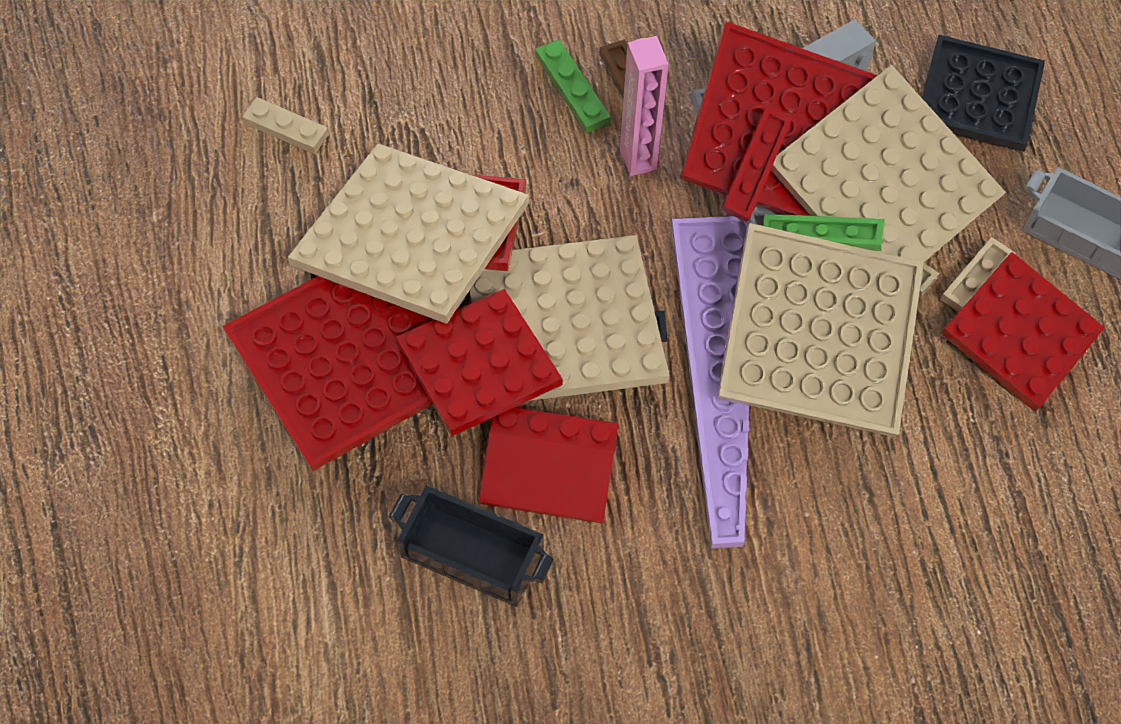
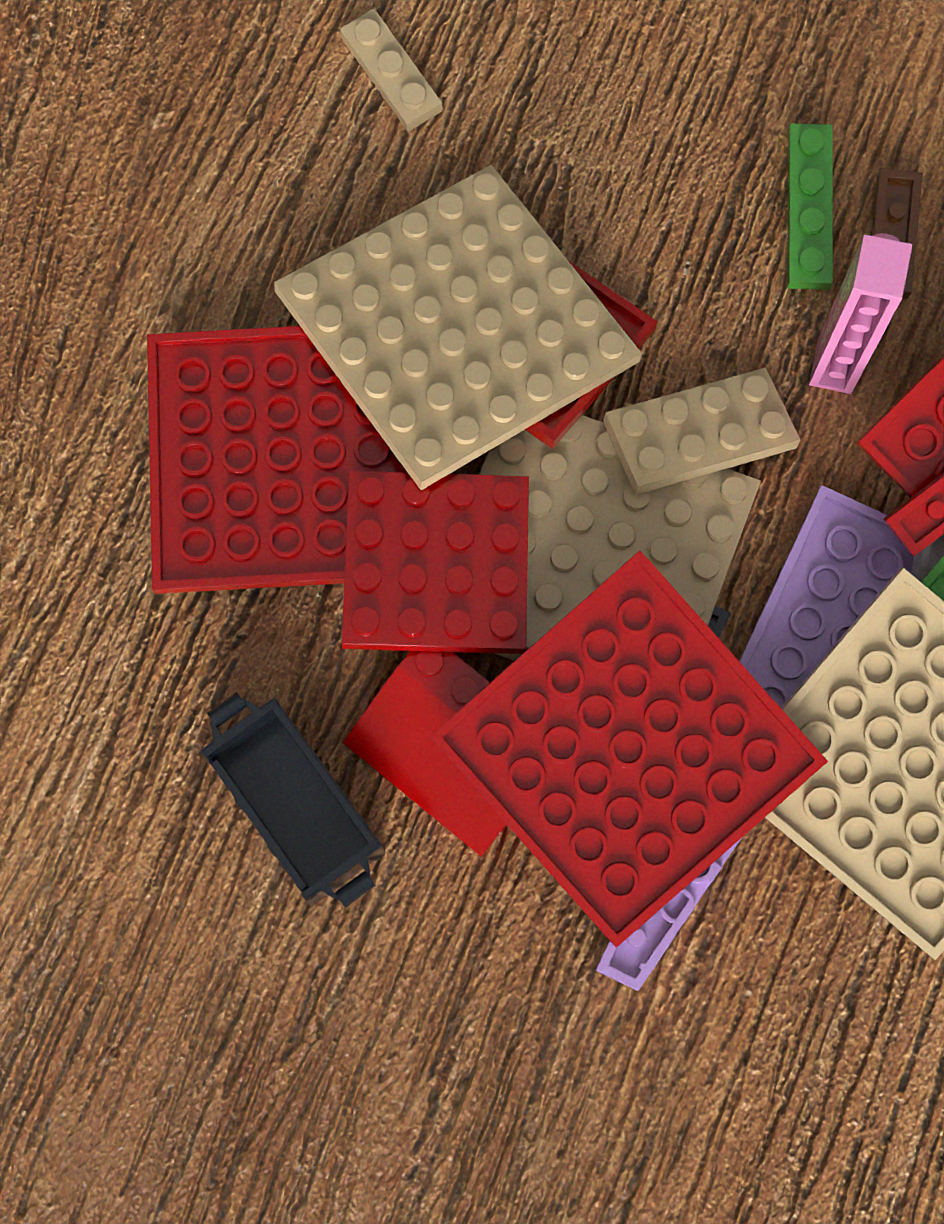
camera: 35 degrees right, 15 degrees up
(585, 224) = (700, 430): none -> tan plate
(655, 402) = (628, 749): none -> red plate

